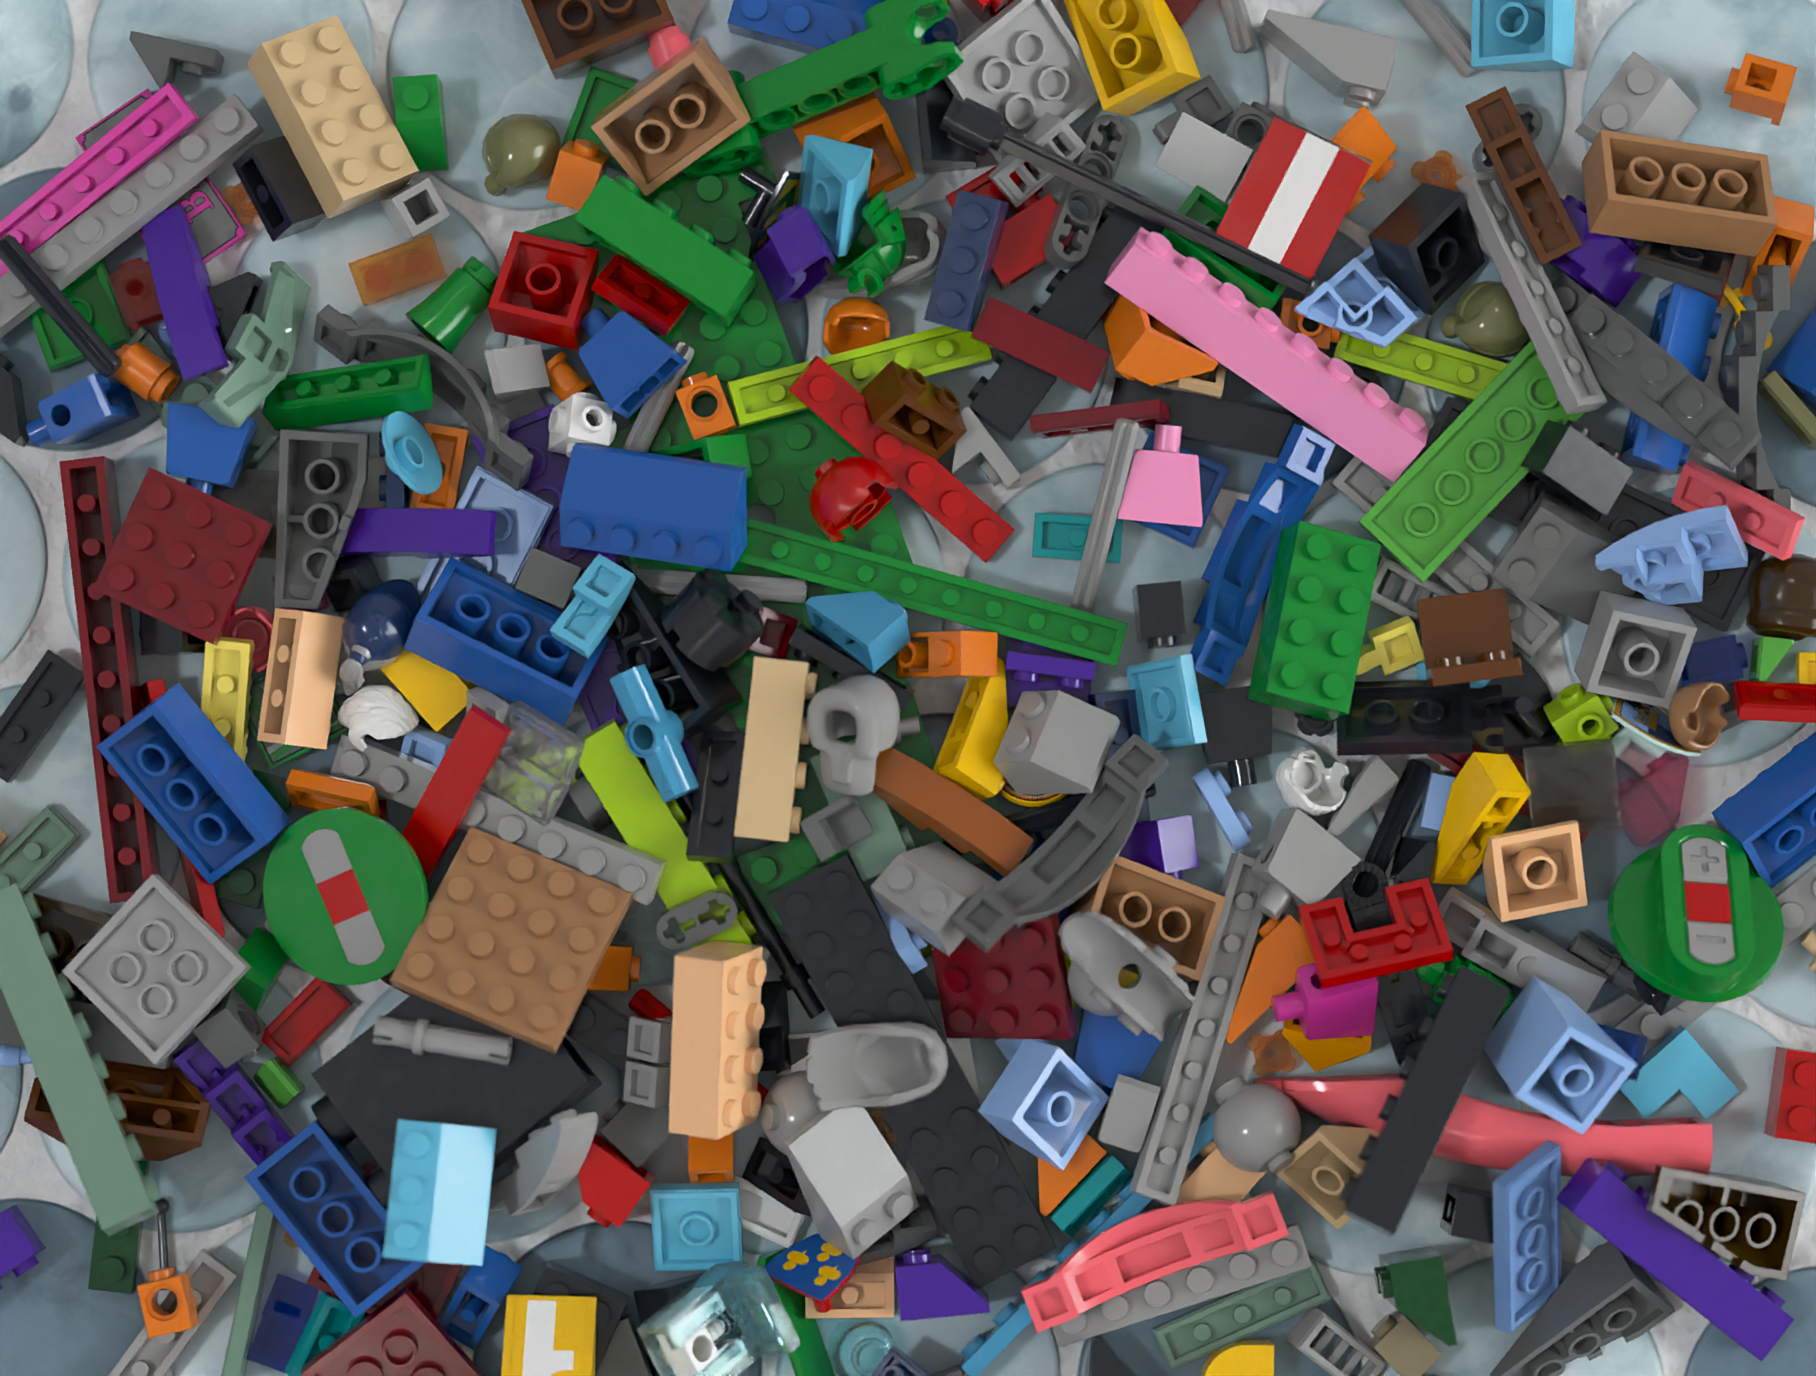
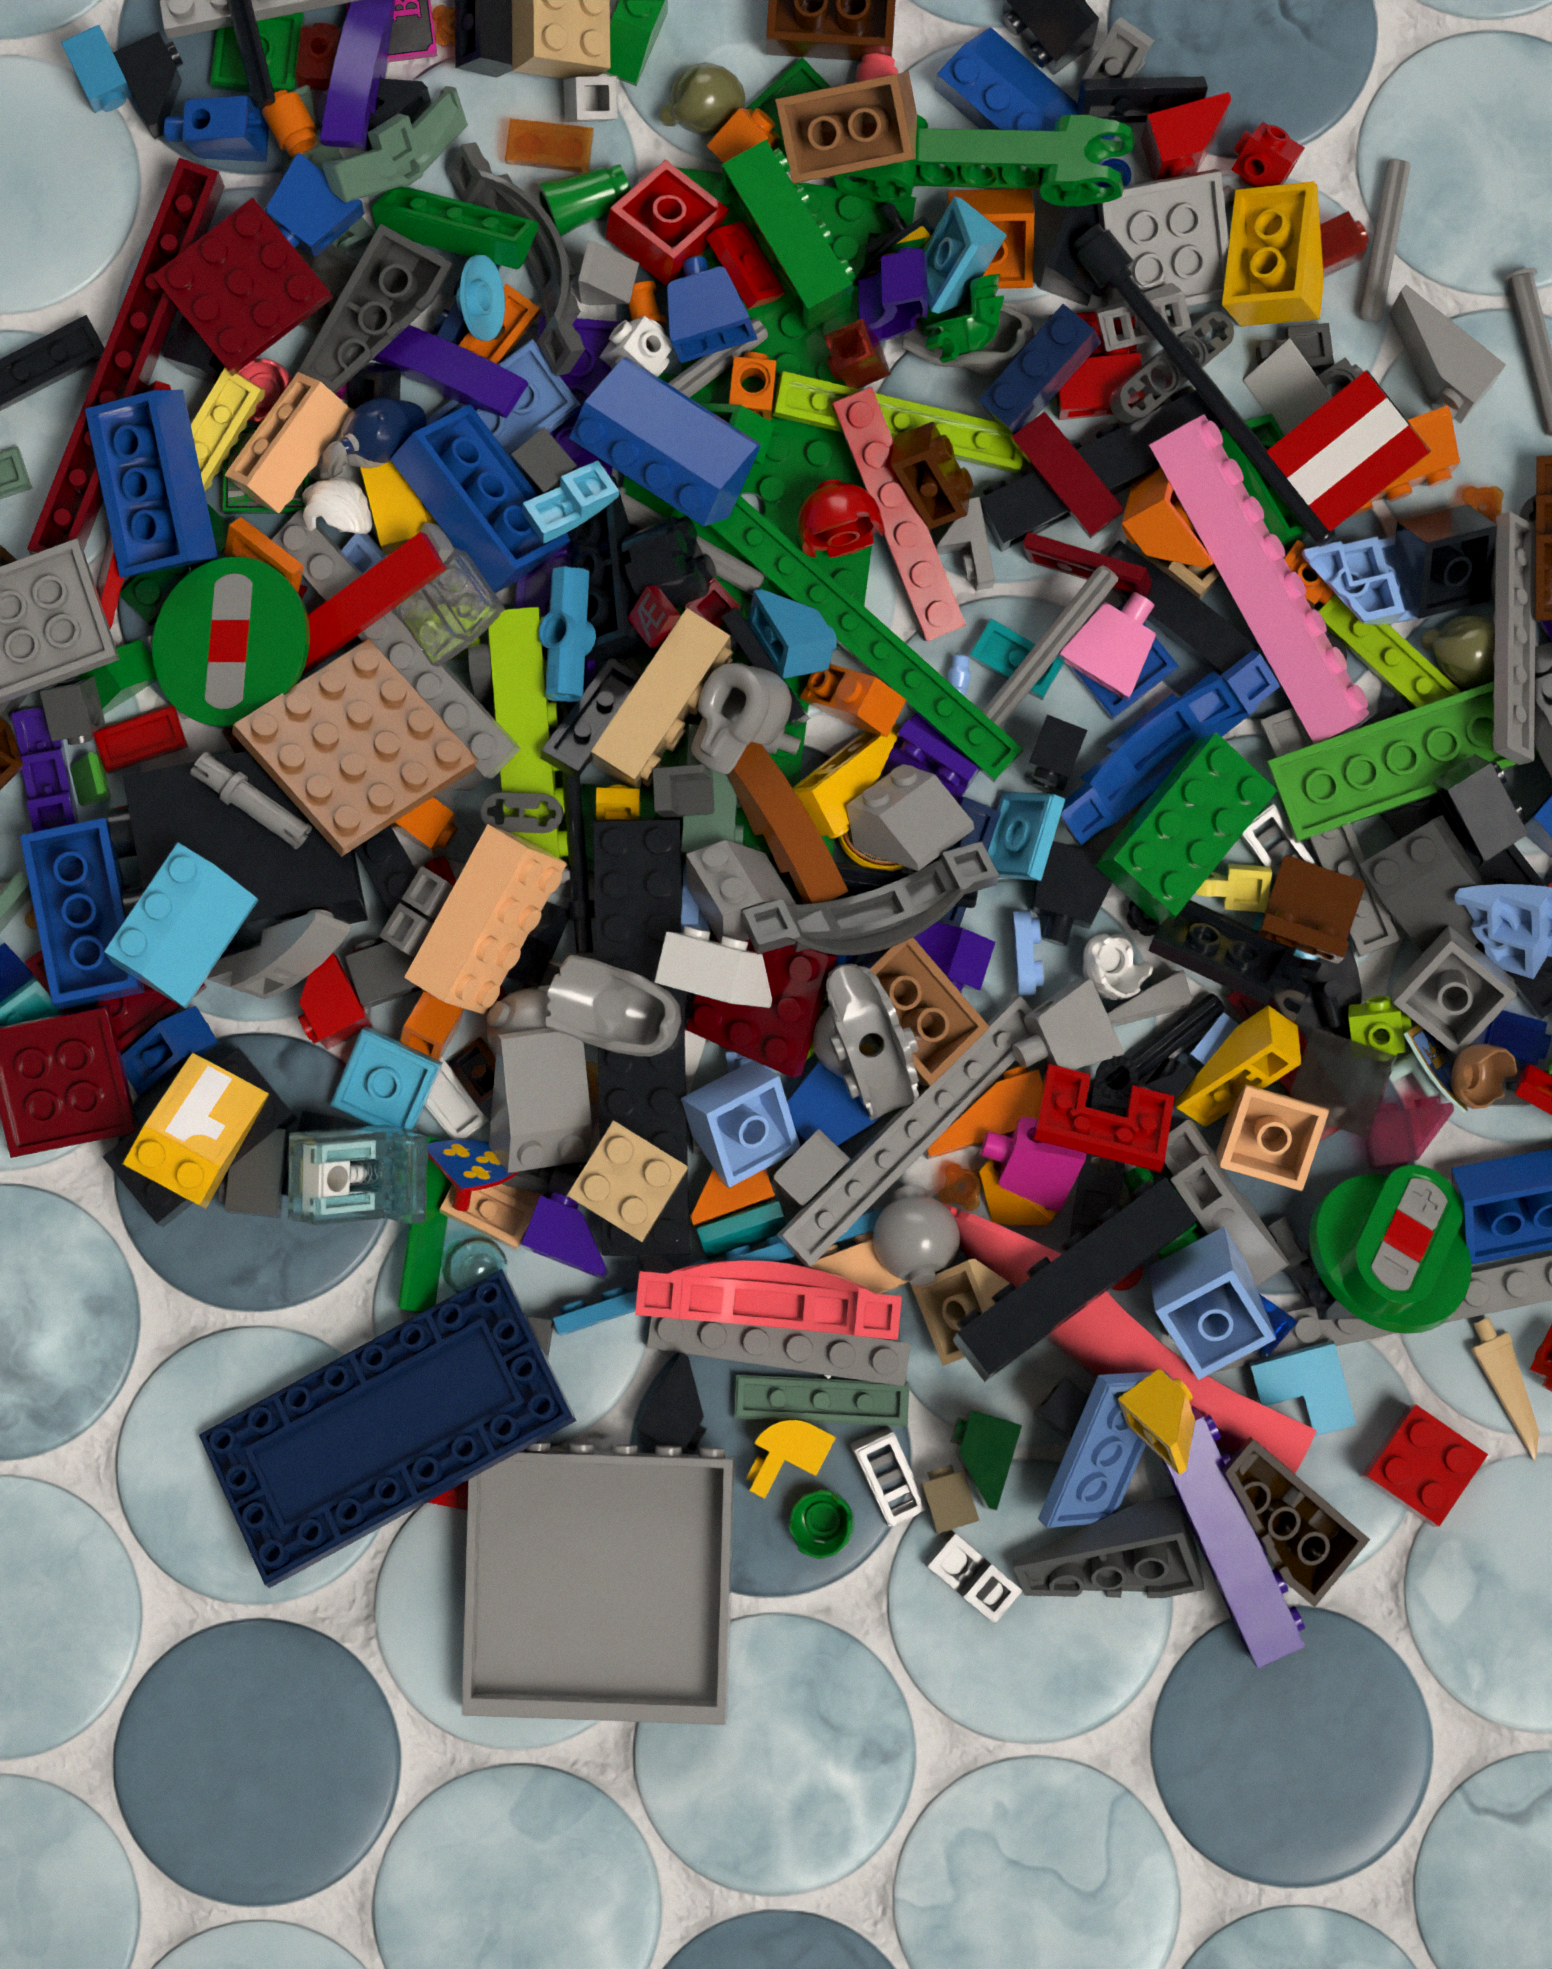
camera: 20 degrees right, 5 degrees down
(727, 679) = (653, 616): none -> dark red tile
(779, 863) = (617, 803): none -> yellow plate
(788, 331) = (856, 355): none -> clear red brick
(855, 324) = (917, 380): orange hair -> none
(950, 984) = (713, 968): none -> white slope
(970, 1214) = (628, 1181): none -> tan brick
(1032, 579) = (959, 673): none -> light blue piece
(1570, 1190) = (1161, 1417): none -> yellow slope

